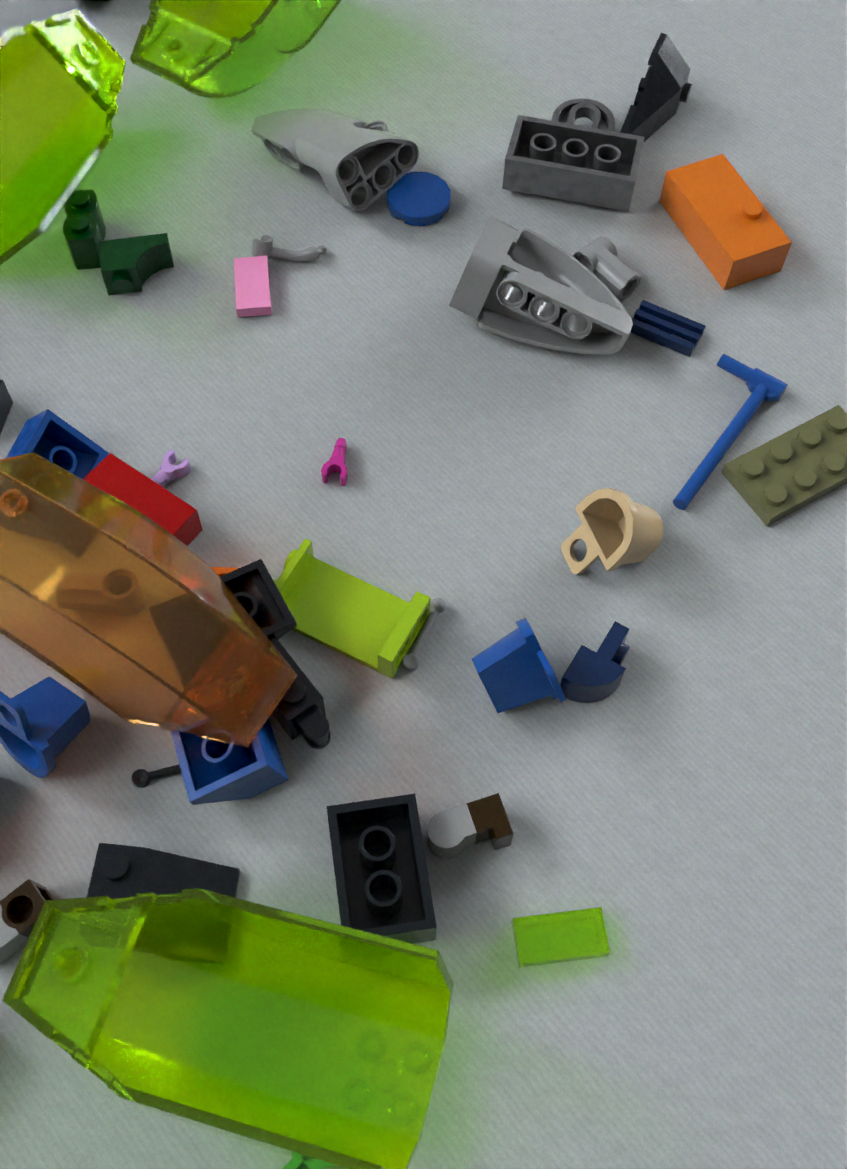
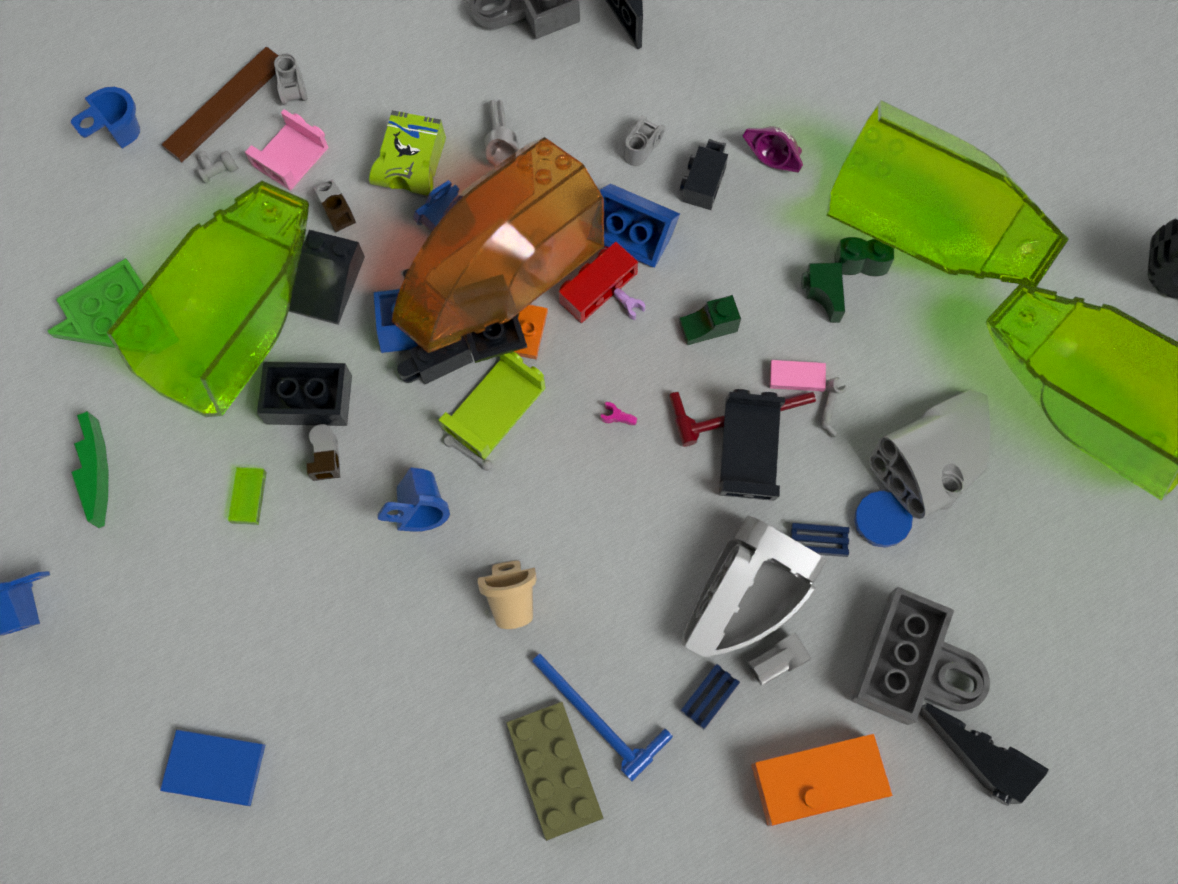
camera: 105 degrees right, 10 degrees up
(188, 372) = (714, 320): none -> dark green arch
(342, 382) = (690, 430): none -> dark red bar
(359, 317) = (750, 445): none -> black panel
(454, 231) = (823, 529): none -> dark blue tile
(597, 674) = (407, 554): dark blue brick -> none

